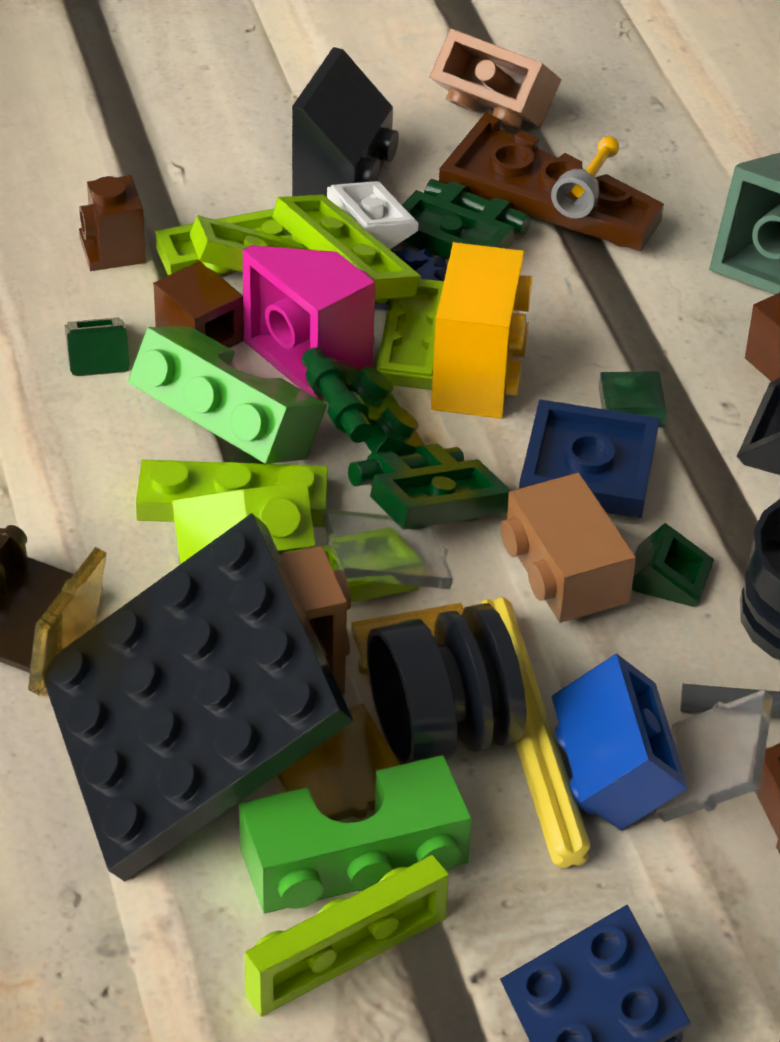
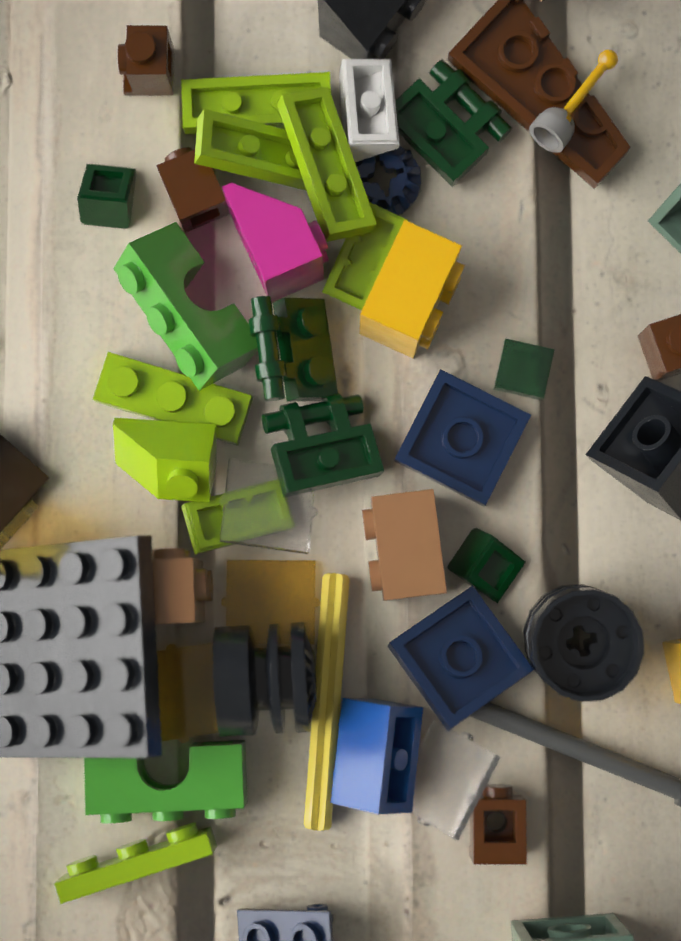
camera: 20 degrees right, 40 degrees up
(679, 638) = (460, 658): none -> dark blue plate

